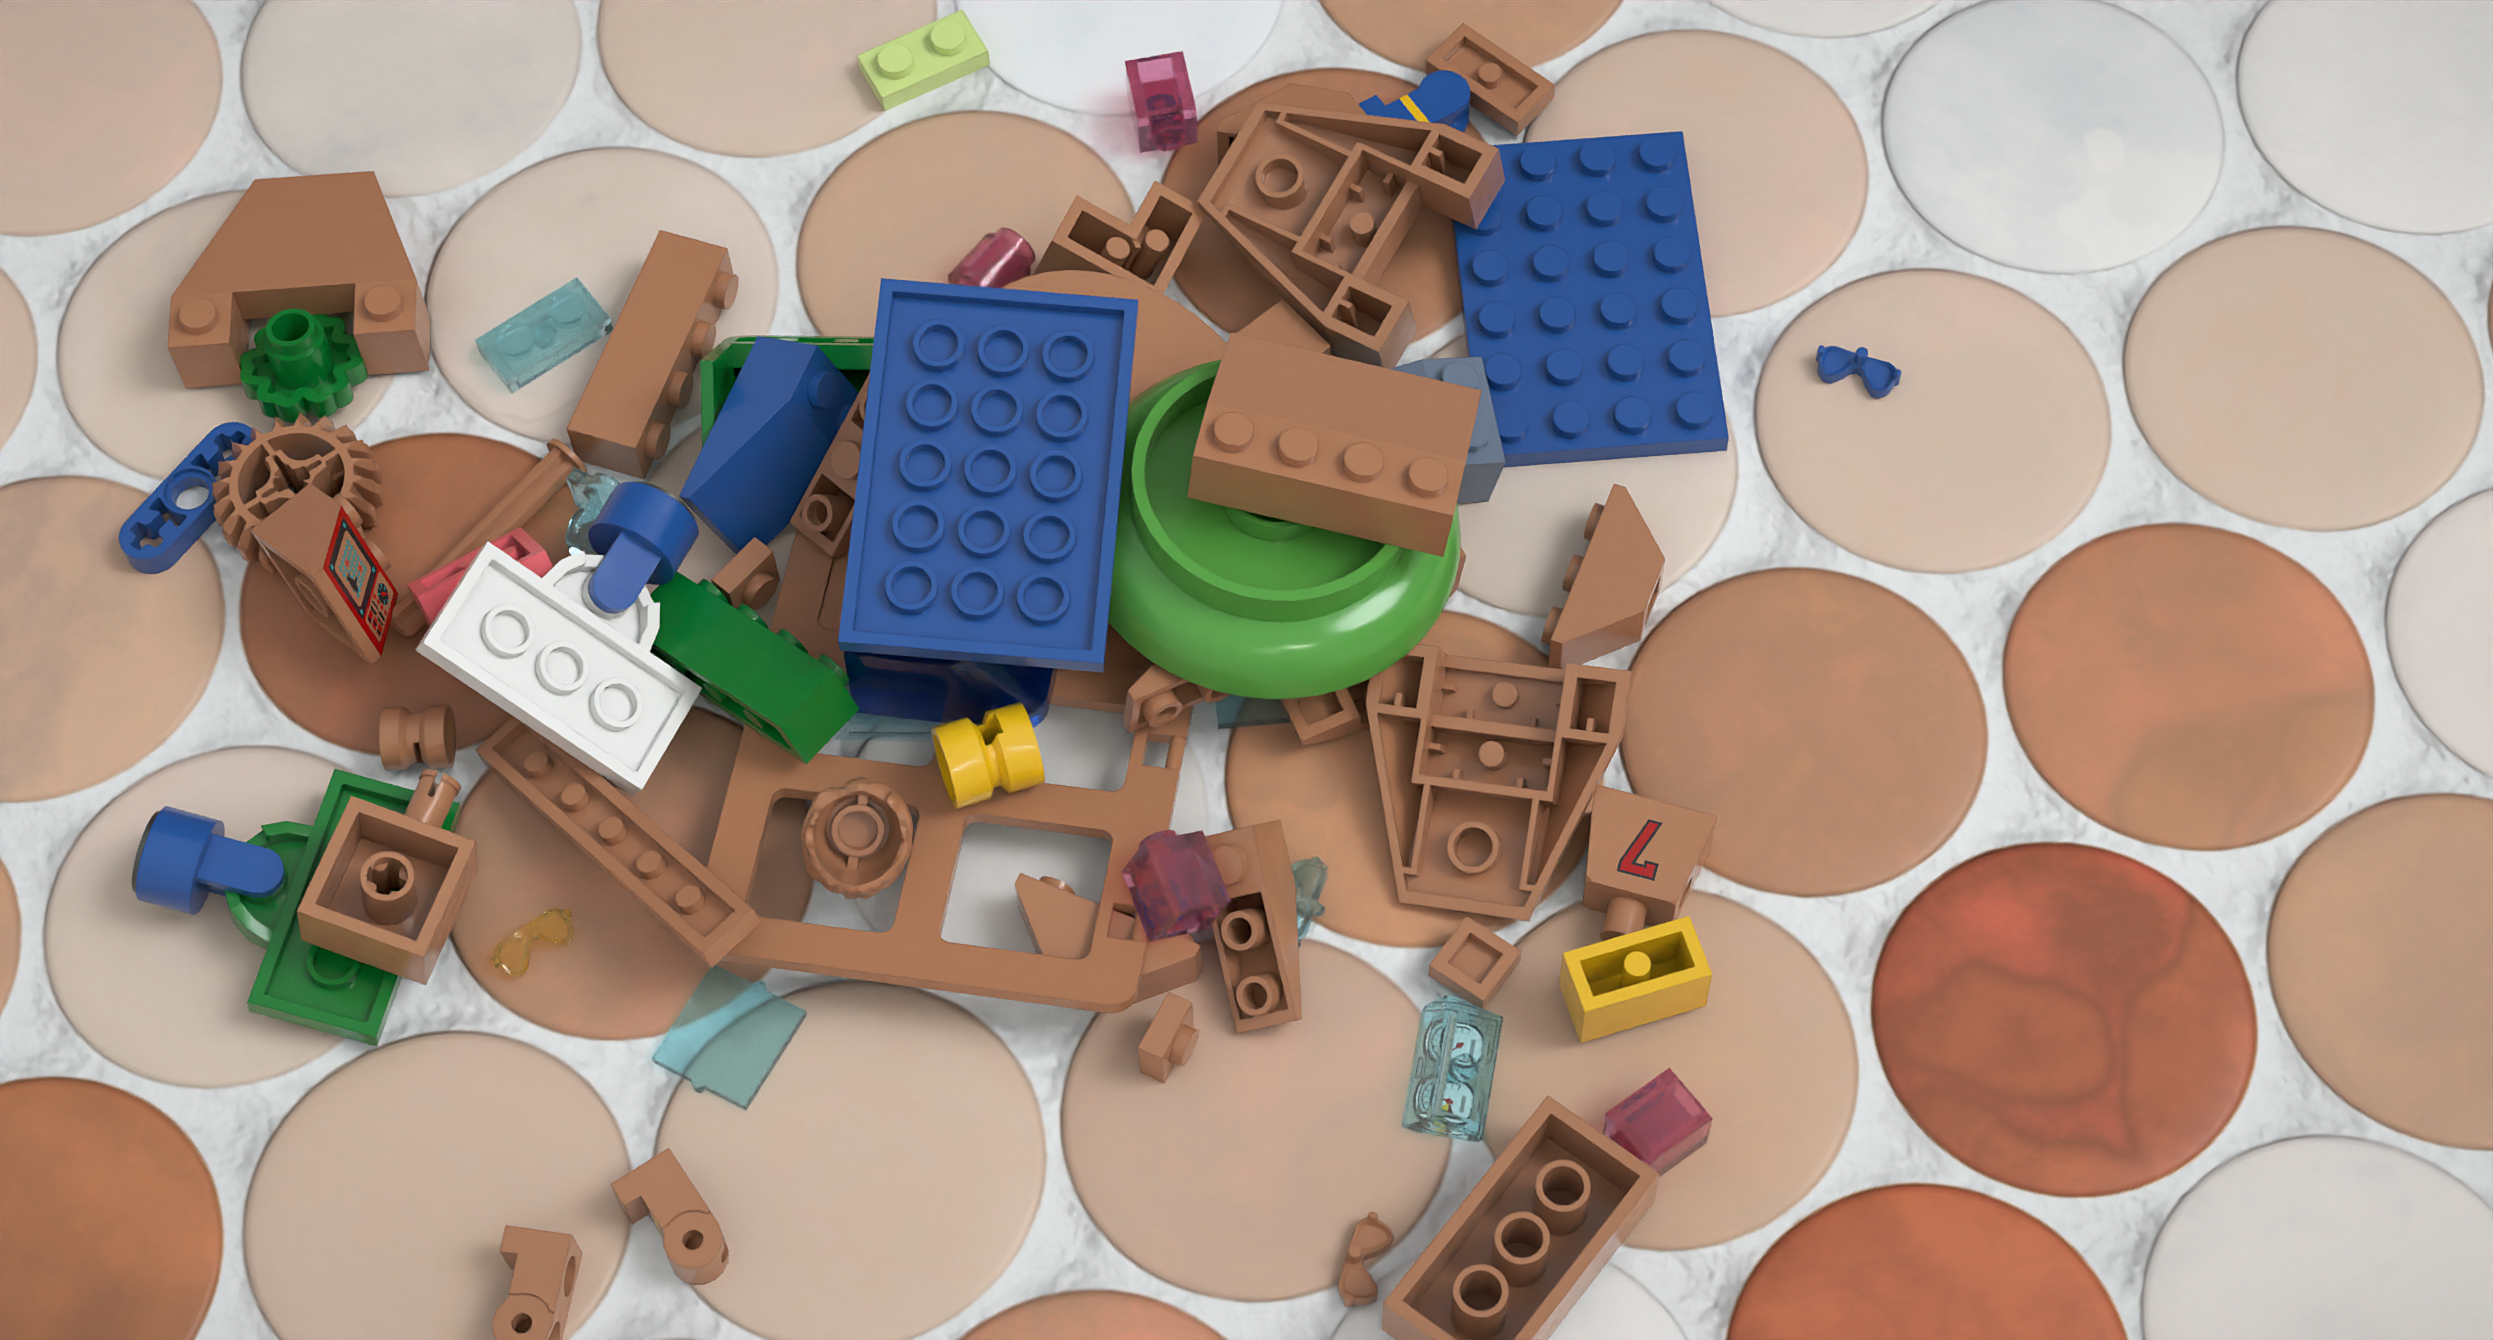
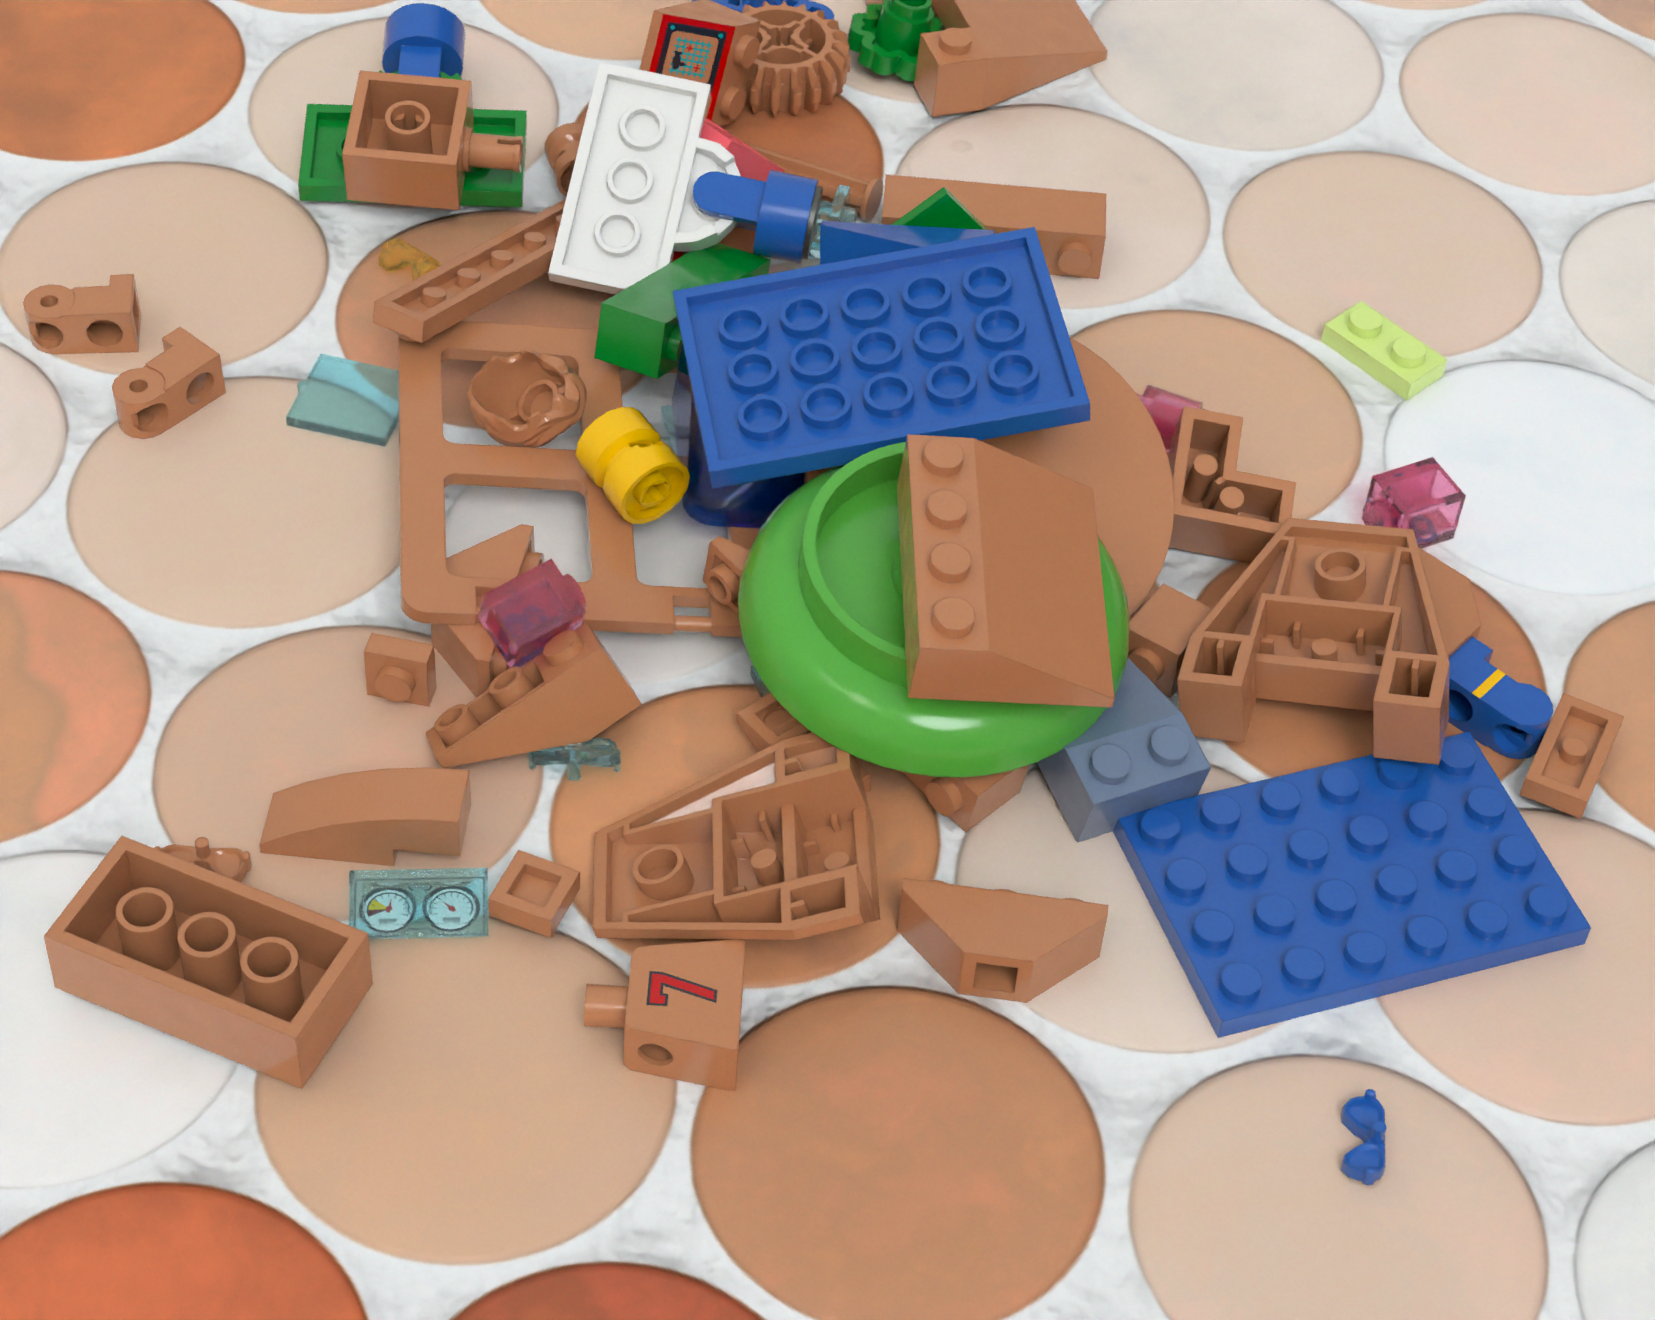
camera: 70 degrees right, 15 degrees down
(544, 335) = (979, 160): clear light blue plate -> none
(1352, 1094) = (370, 815): none -> nougat slope
(1635, 979) = (534, 1012): yellow brick -> none
(1659, 1123) = (376, 1066): clear pink brick -> none

